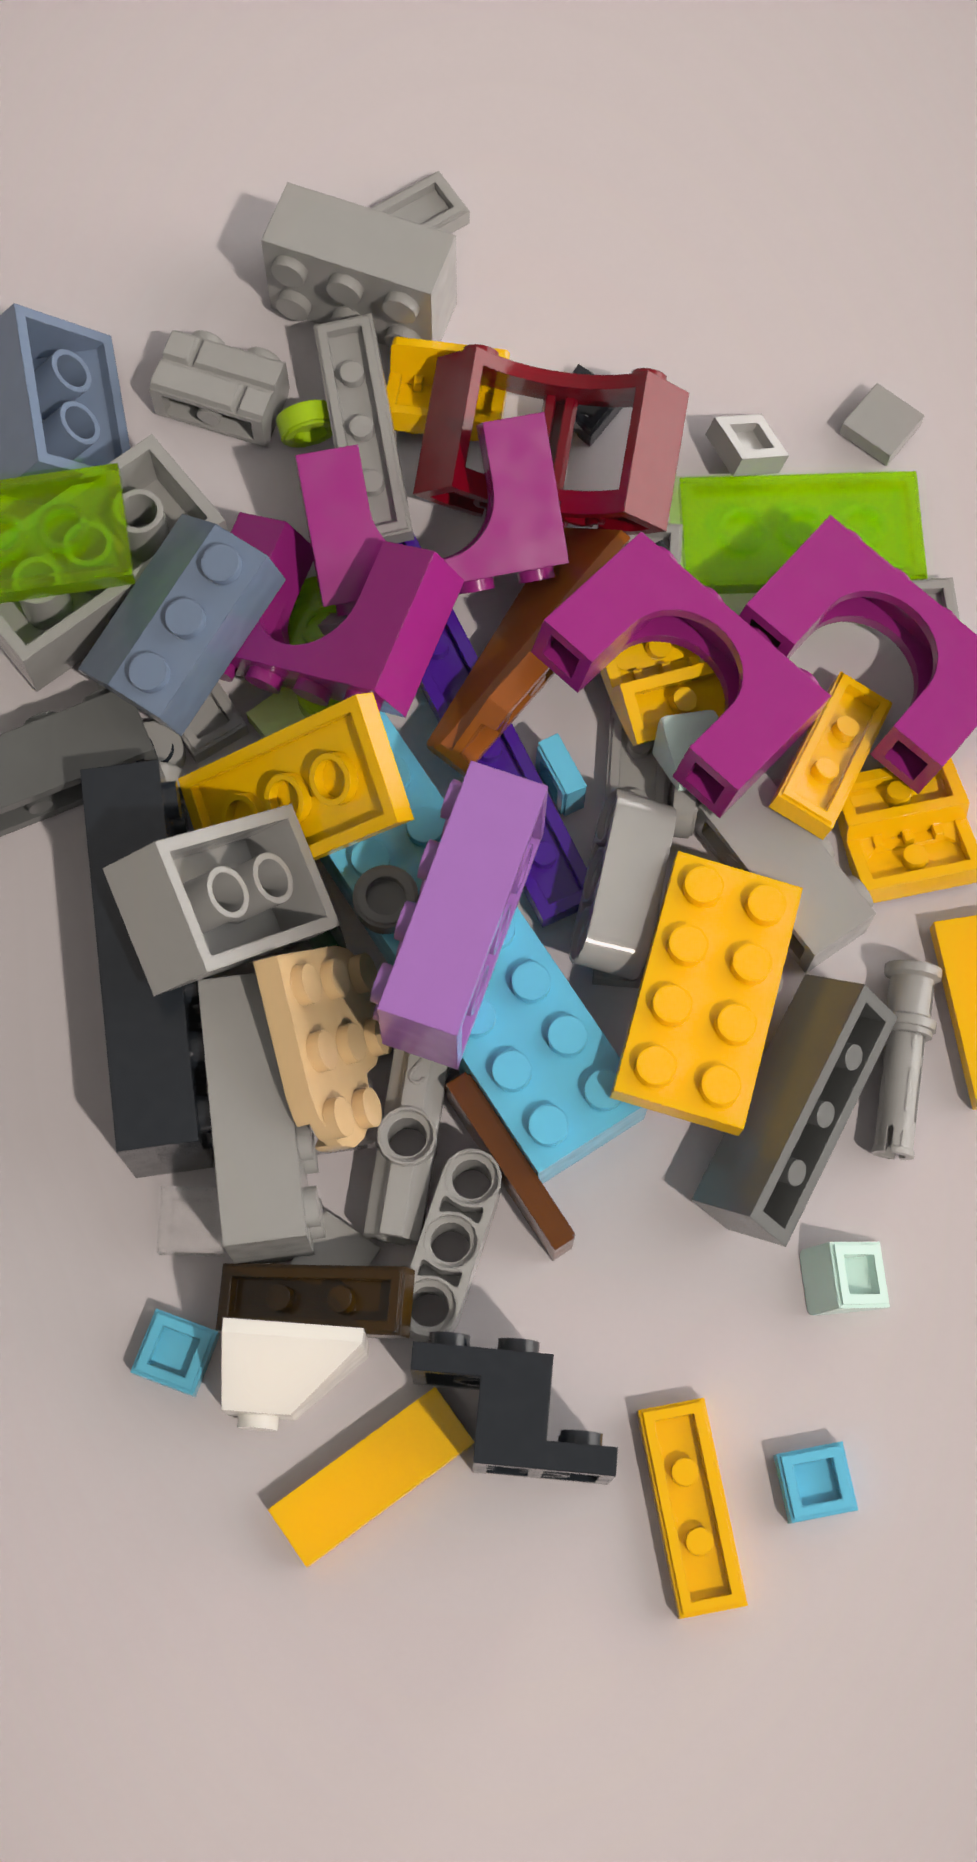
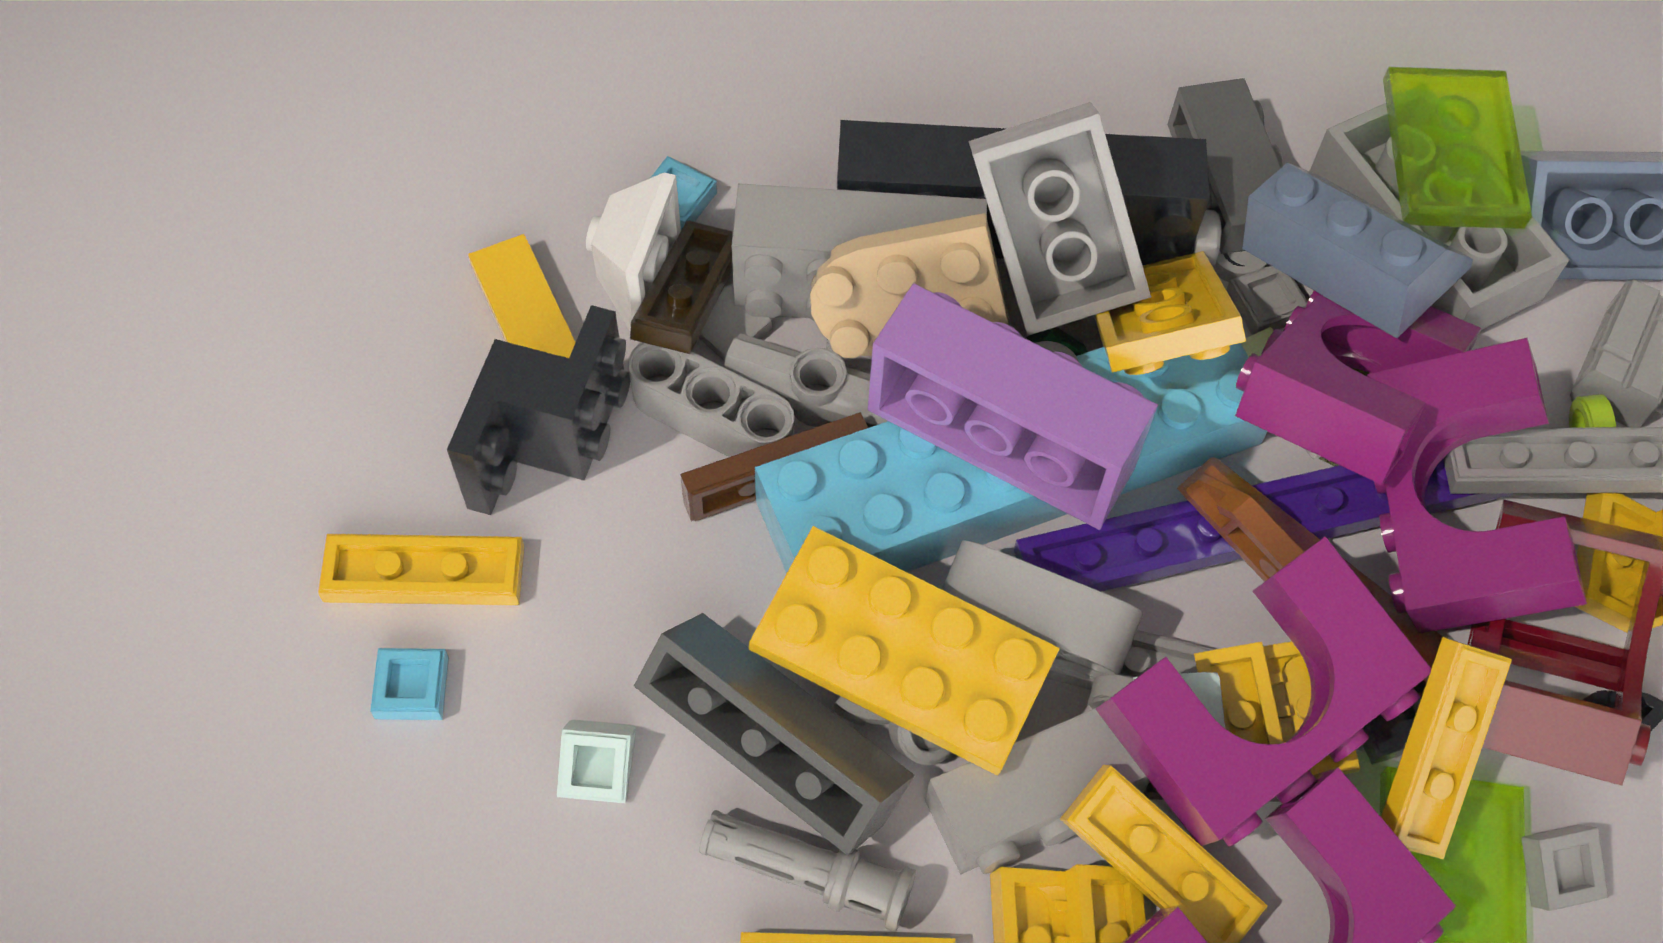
camera: 100 degrees right, 10 degrees down
(560, 775) = (1173, 587): medium azure tile -> none
(692, 526) = (1444, 746): none -> yellow tile

